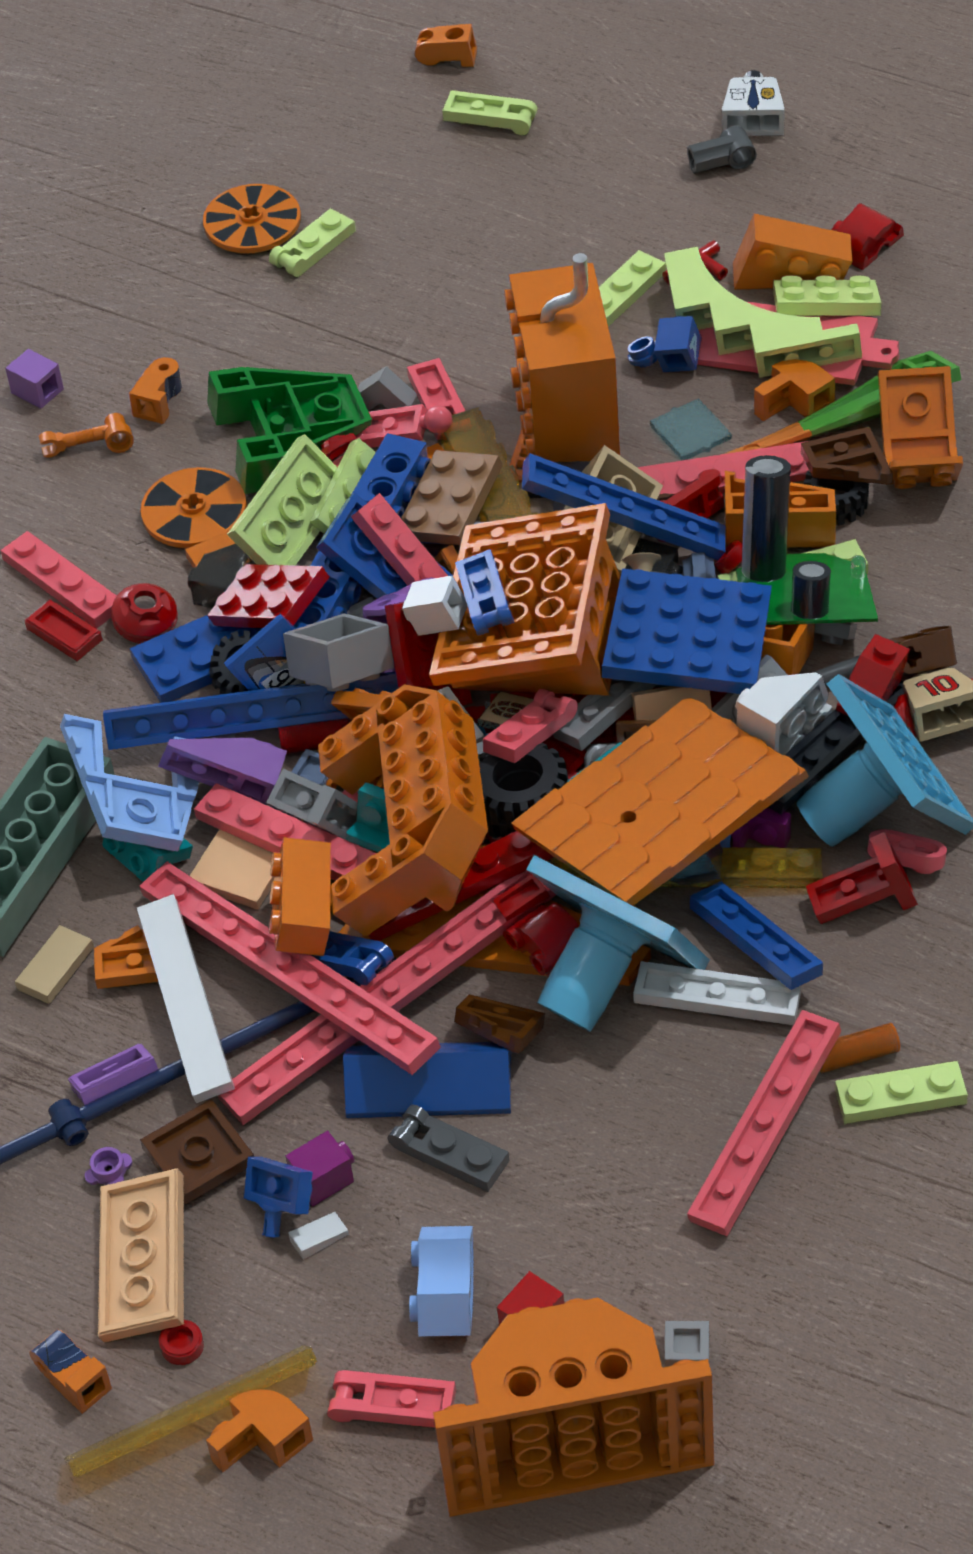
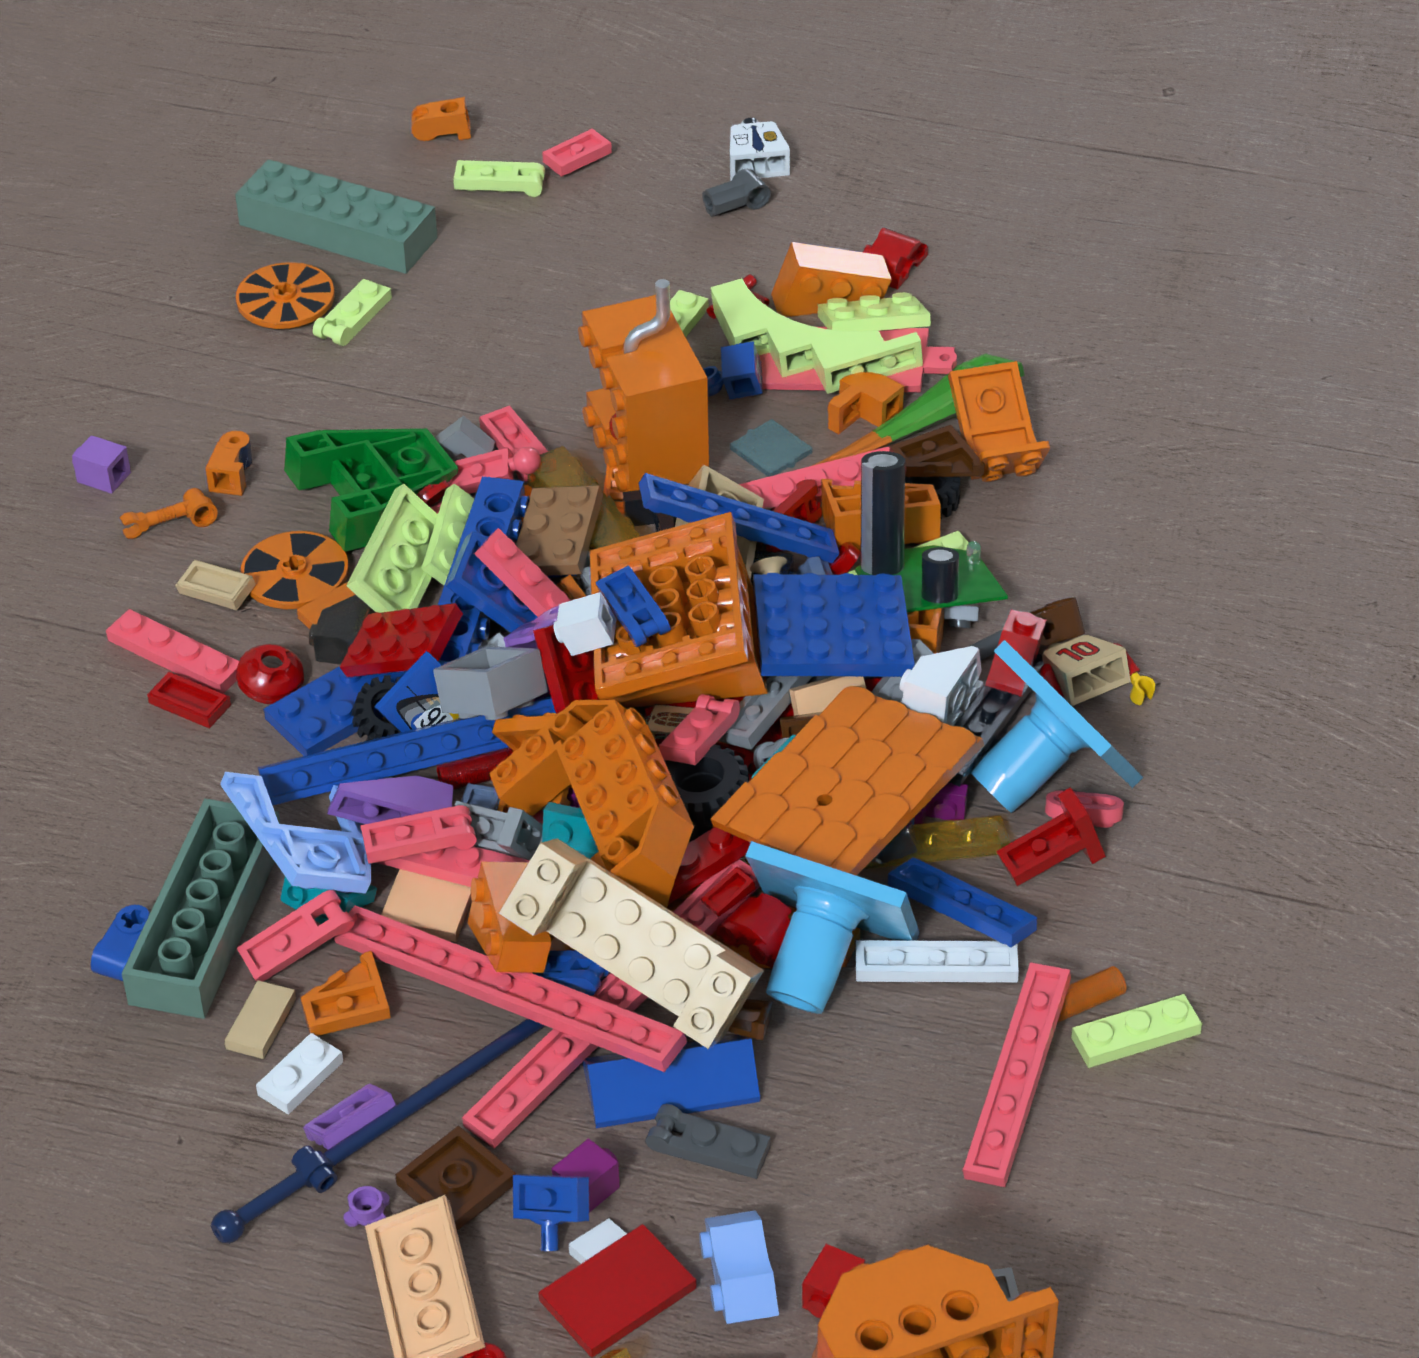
camera: 15 degrees left, 5 degrees down
(78, 1023) = (299, 1073): none -> white plate
(101, 886) = (295, 936): none -> coral plate
(114, 515) = (215, 584): none -> tan tile
(185, 999) = (410, 1033): white tile -> none
(237, 798) = (419, 833): none -> coral plate
(319, 139) = (337, 216): none -> sand green brick
(324, 1286) = (617, 1290): none -> red tile
(406, 937) = (633, 939): none -> tan plate
(573, 92) = (577, 152): none -> coral plate

